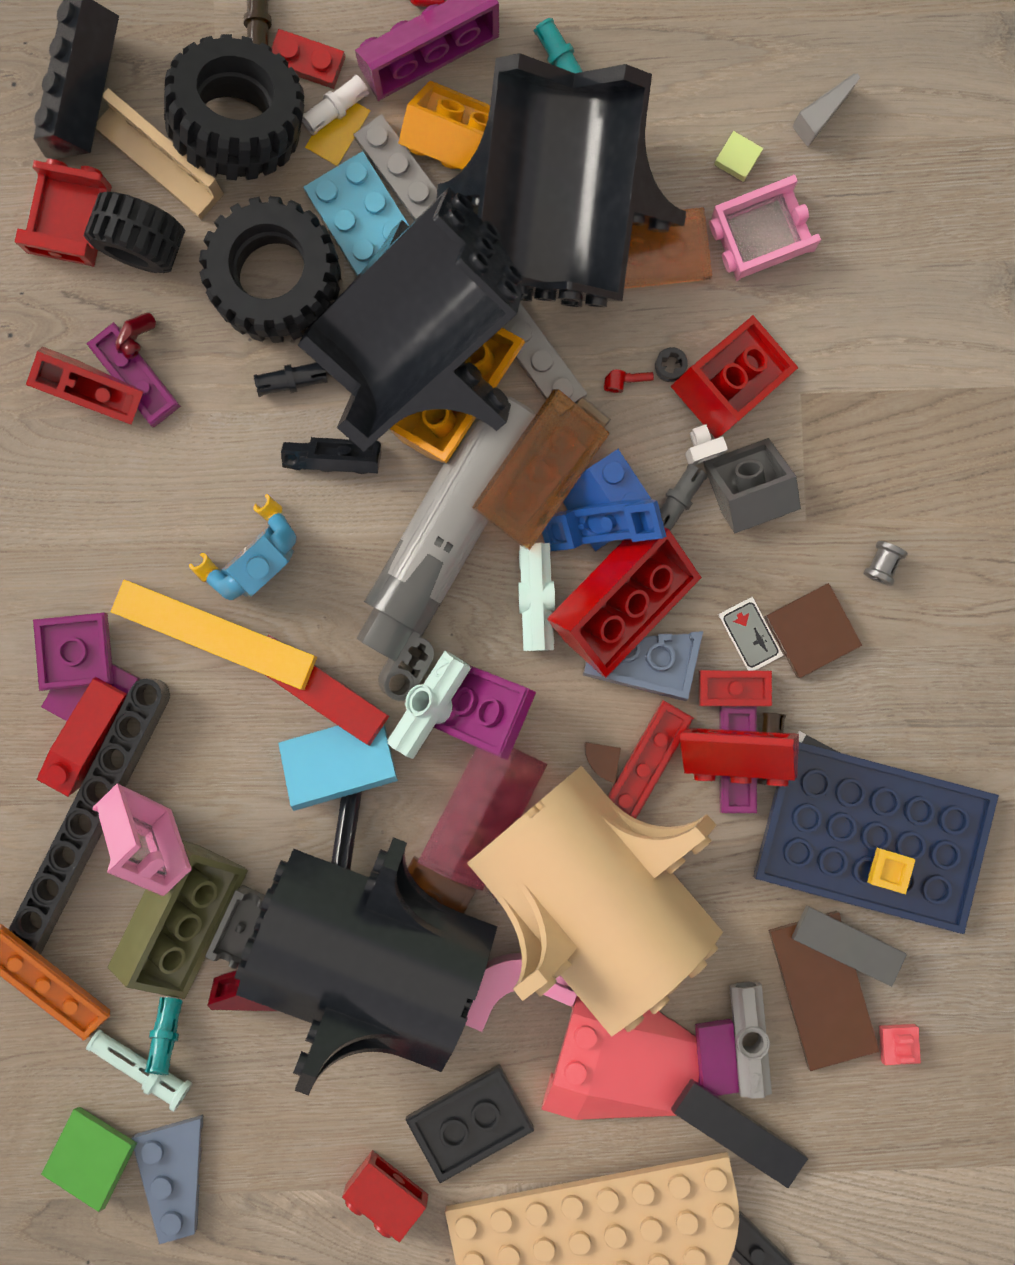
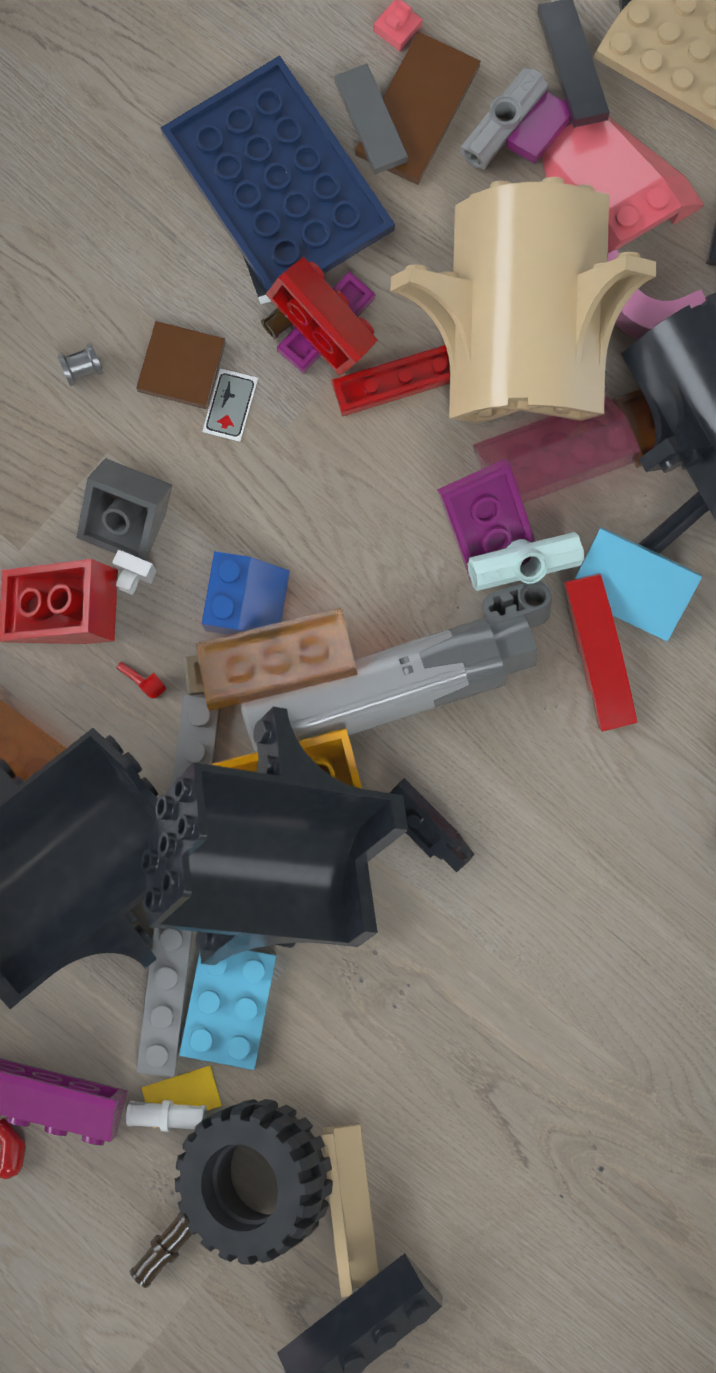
camera: 135 degrees left, 5 degrees down
(62, 211) = (467, 1228): red panel -> none
(83, 385) = (578, 1064): red slope -> none
(129, 332) = (499, 1075): dark red arm -> none
(134, 232) = (427, 1150): black tyre -> none
(156, 400) = (528, 1041): magenta tile -> none
(214, 634) = (646, 768): yellow tile -> none
(243, 234) = (333, 1072): black tyre -> none
(257, 561) = (562, 792): dark azure torso -> none
(289, 379) = (406, 920): black pin -> none
(310, 58) = (152, 1179): red plate -> none
(444, 125) = (90, 1008): light orange slope -> none
(536, 597) = (369, 571): light aqua piece -> none
(603, 760) = (427, 410): reddish brown tile -> none
(605, 522) = (261, 573): blue slope -> none
(624, 600) = (300, 510): red slope -> none
(657, 665) = (328, 450): sand blue wing -> none
(663, 357) = (93, 670): black bush -> none
(680, 497) = (187, 551): dark grey pin -> none
(735, 688) = (280, 373): red plate -> none
(891, 870) = (291, 140): yellow plate -> none

